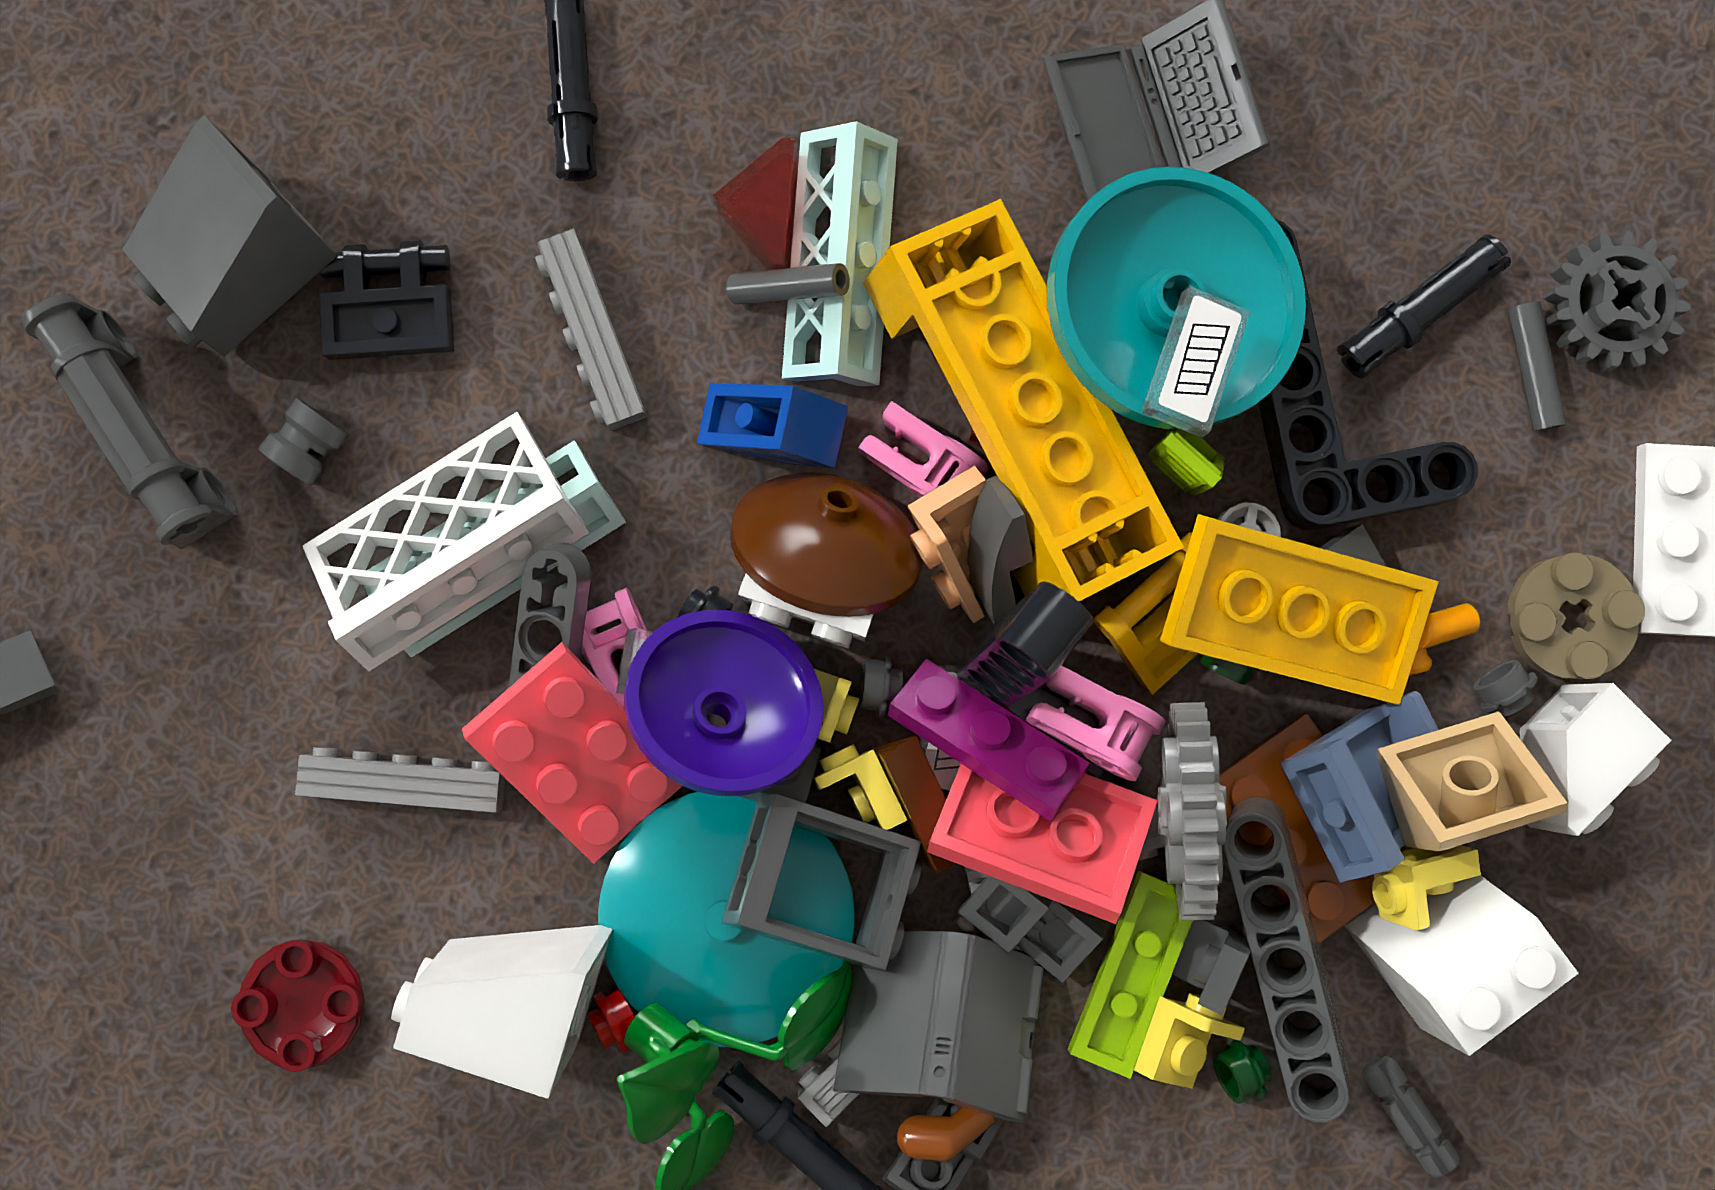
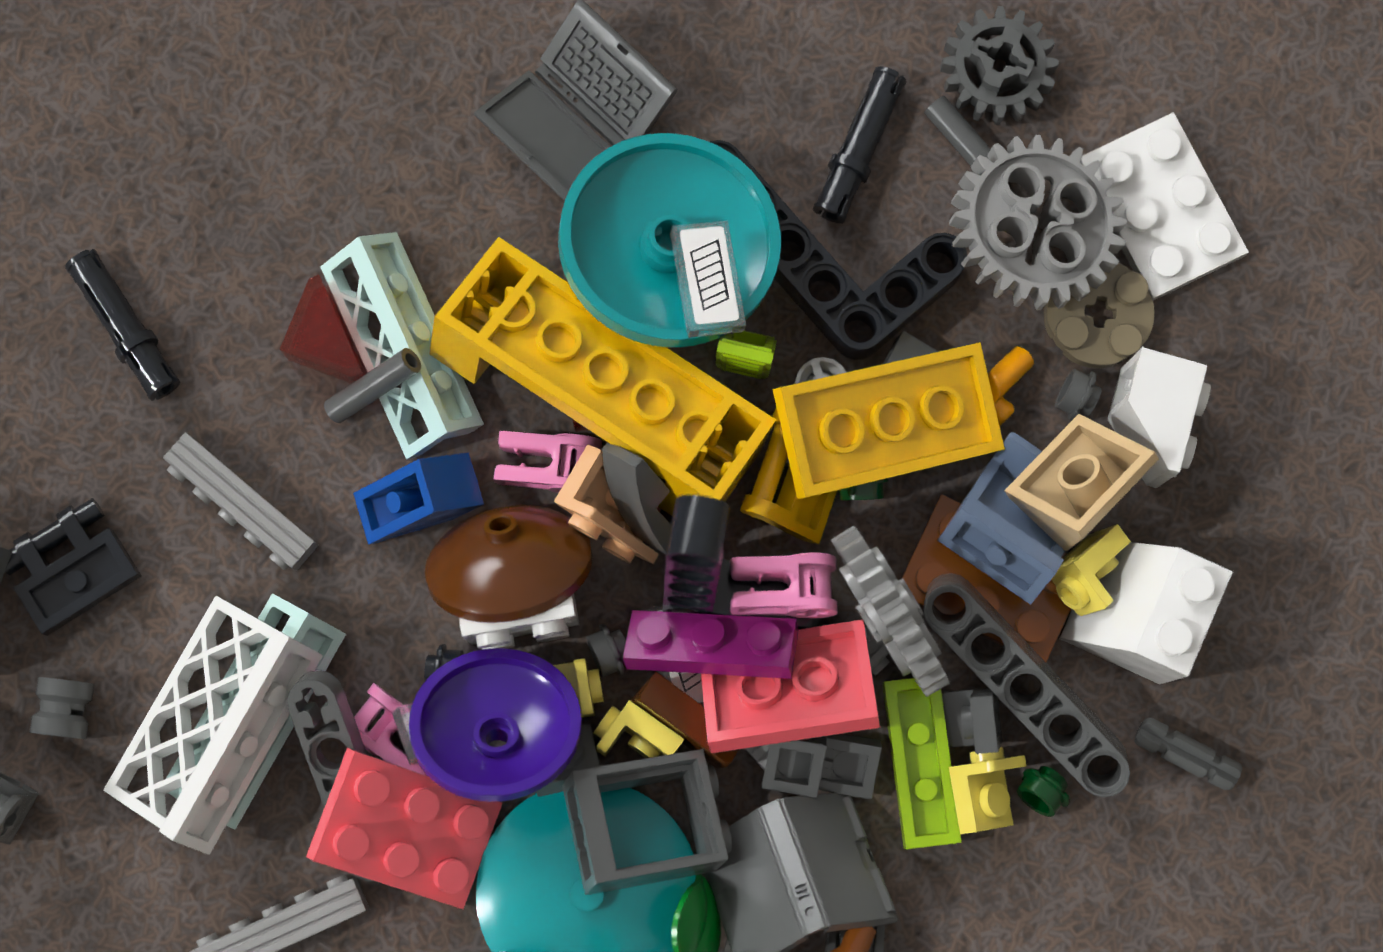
camera: 30 degrees left, 5 degrees down
(1606, 529) = (1084, 237): none -> light grey gear

